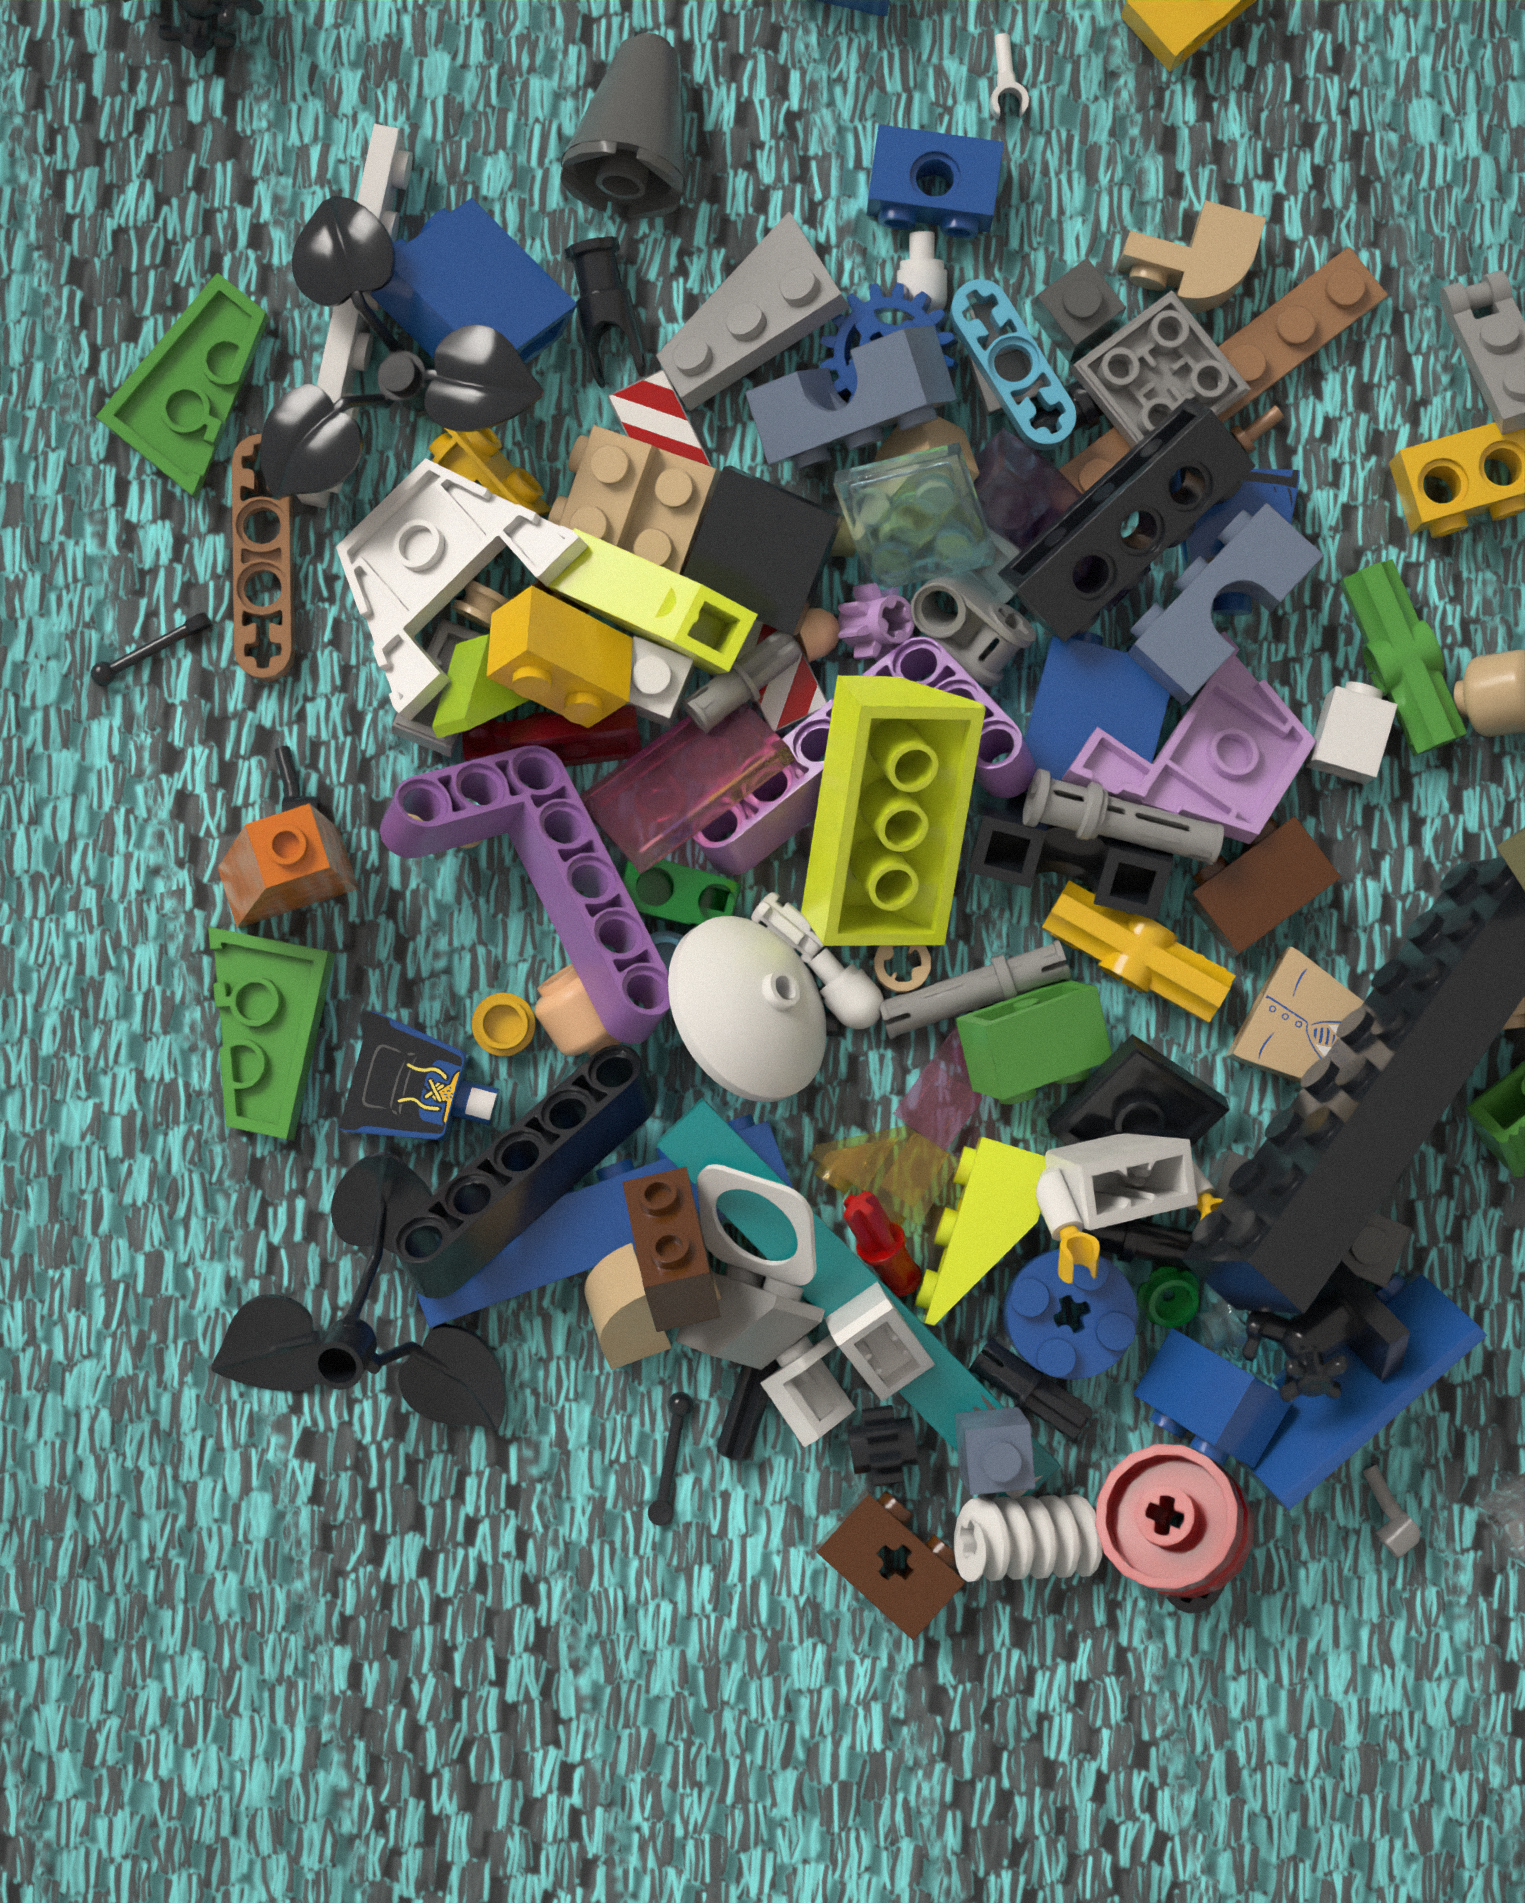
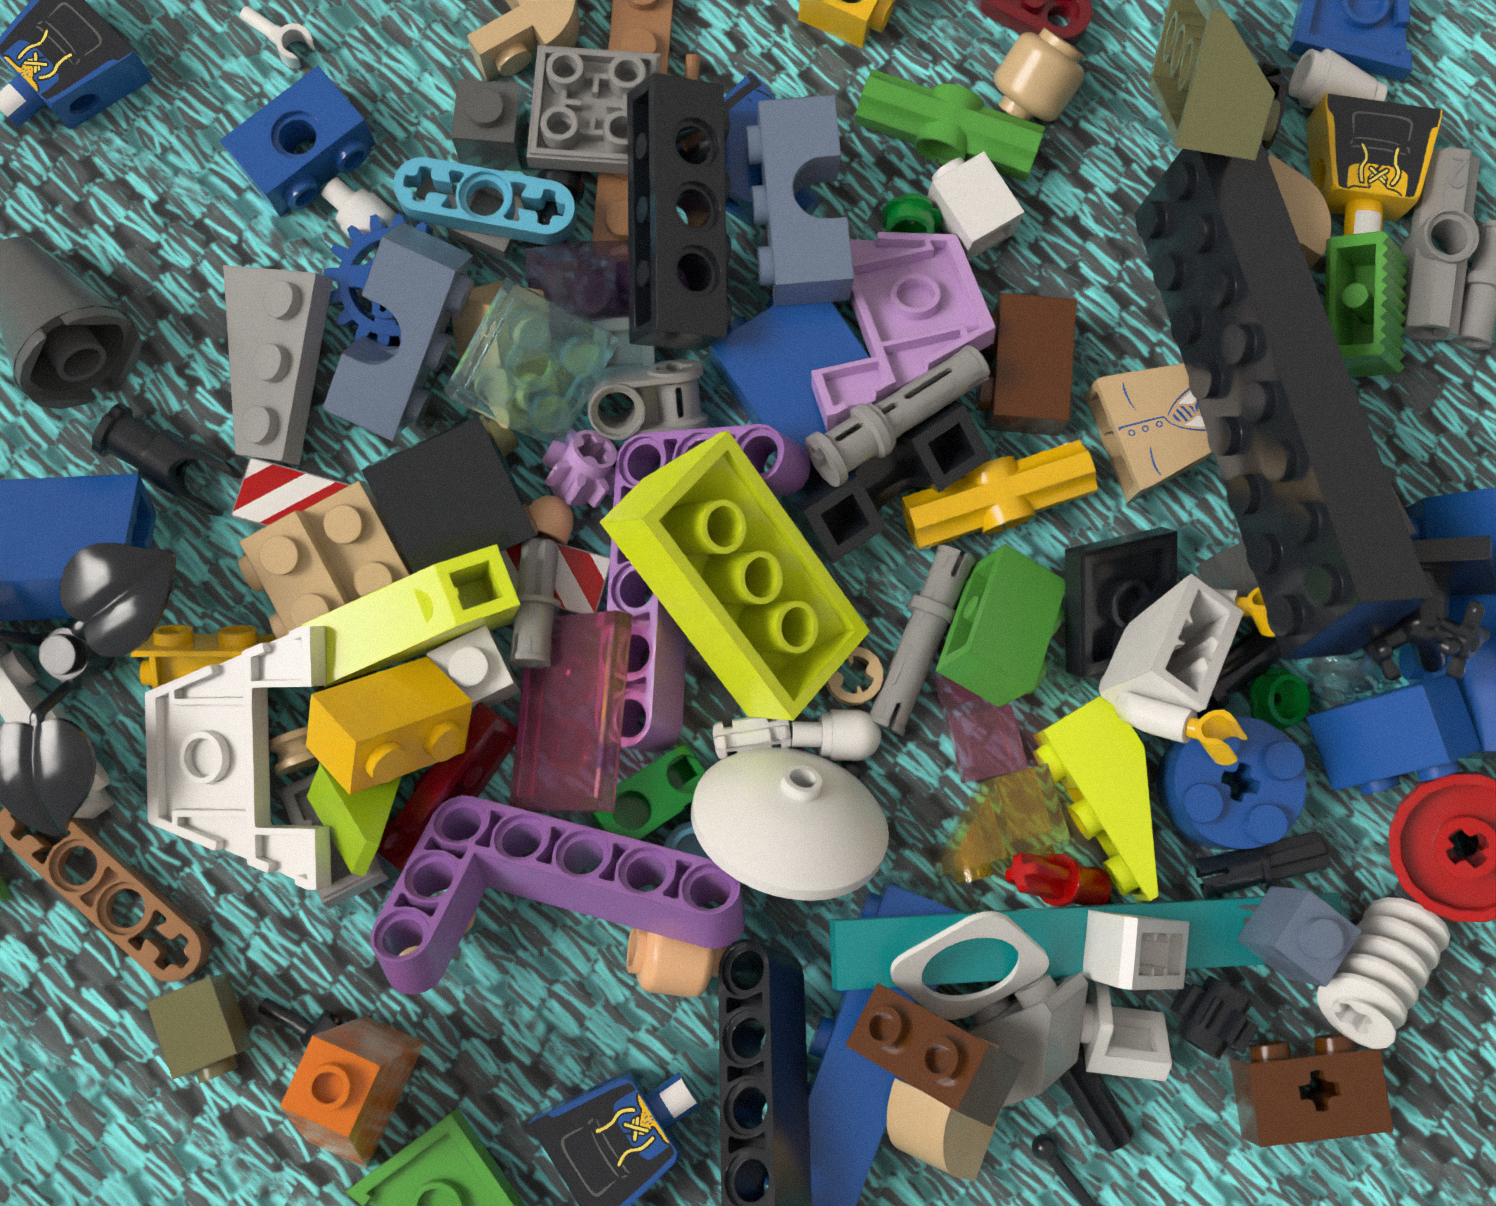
camera: 55 degrees left, 5 degrees down
(104, 672) = (75, 1093): black hinge -> none
(229, 720) = (200, 1028): none -> olive brick
(503, 1024) = (631, 1022): yellow plate -> none
(1302, 693) = (911, 215): none -> green plate

